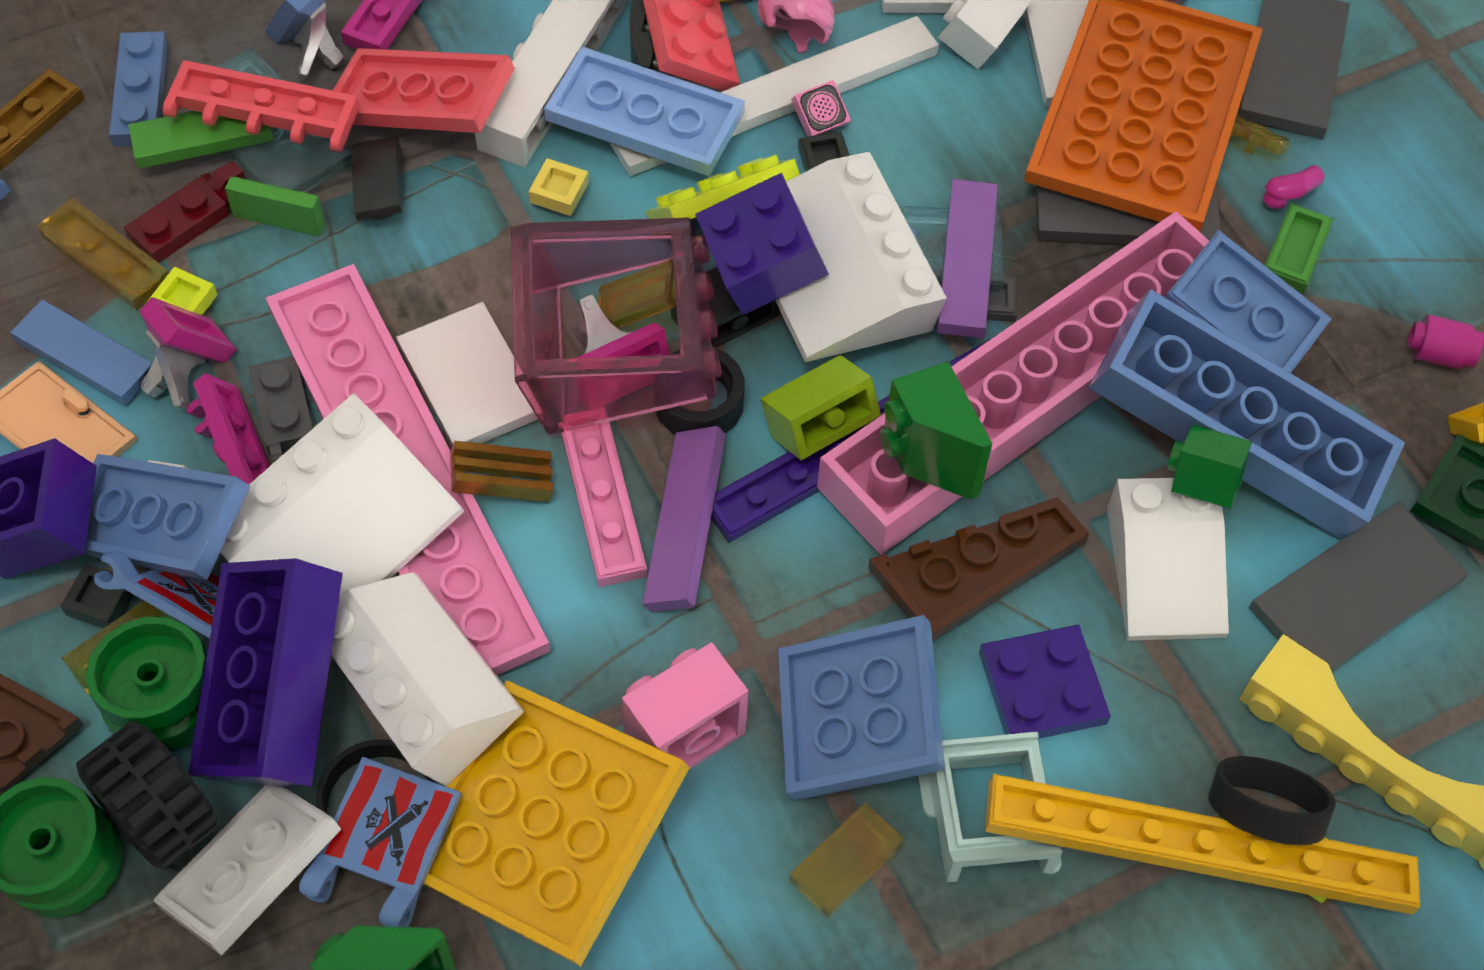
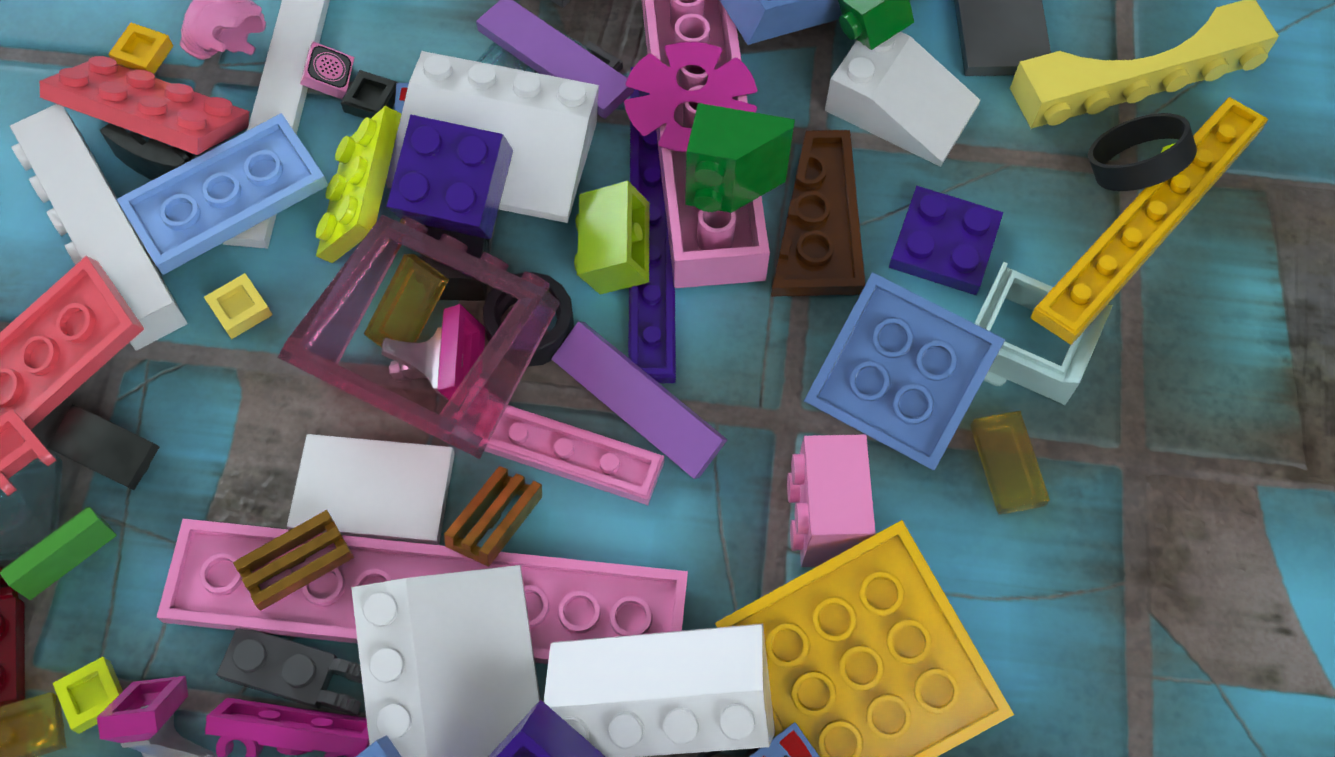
camera: 55 degrees left, 5 degrees up
(371, 347) = (283, 544): none -> pearl gold tile
(993, 339) = (665, 95): none -> dark pink piece

